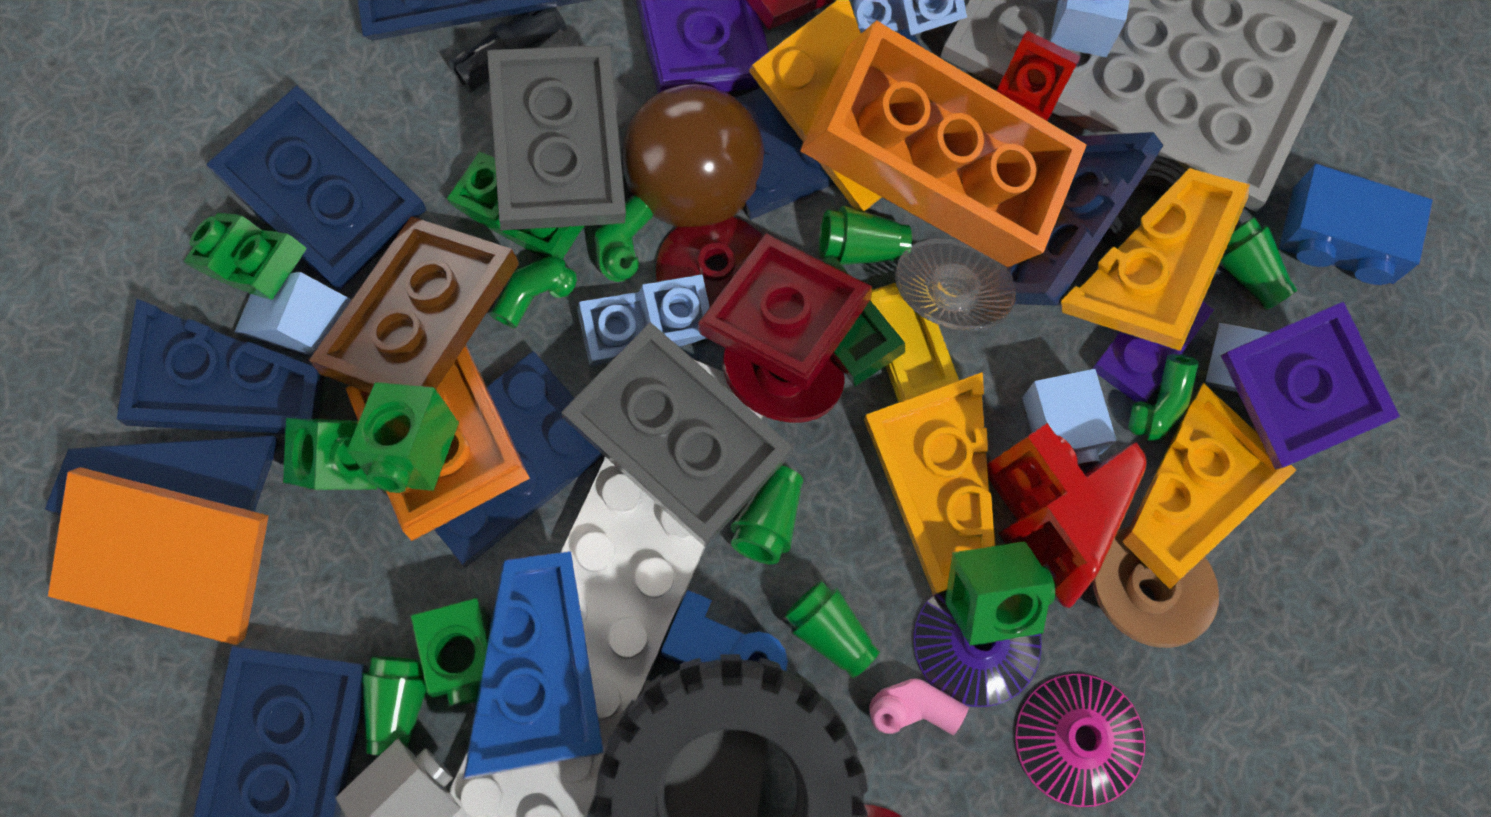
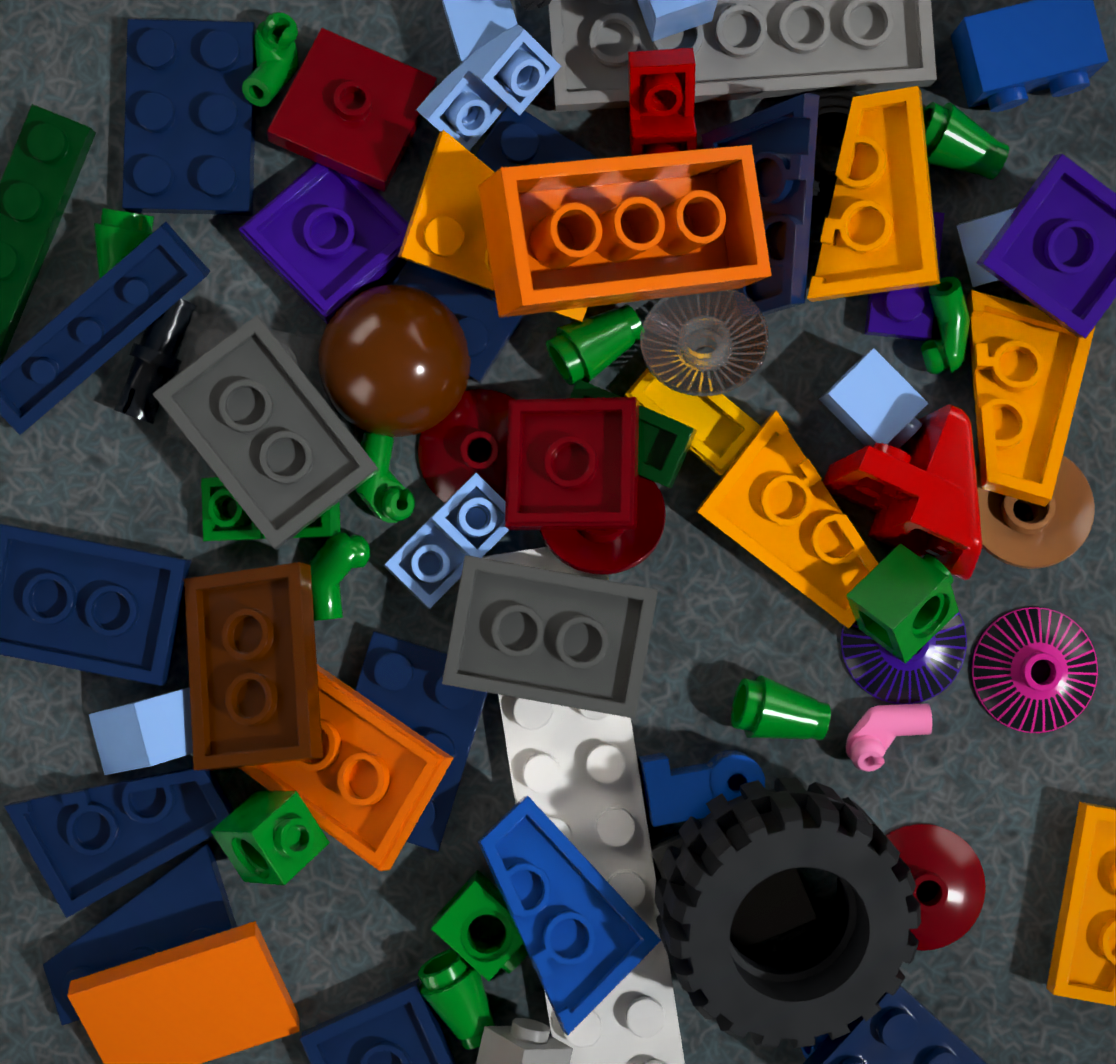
camera: 25 degrees left, 15 degrees up
(243, 254) = (66, 708): green slope -> none
(403, 437) = (303, 793): green brick -> none
(768, 519) = (671, 654): green cone -> none

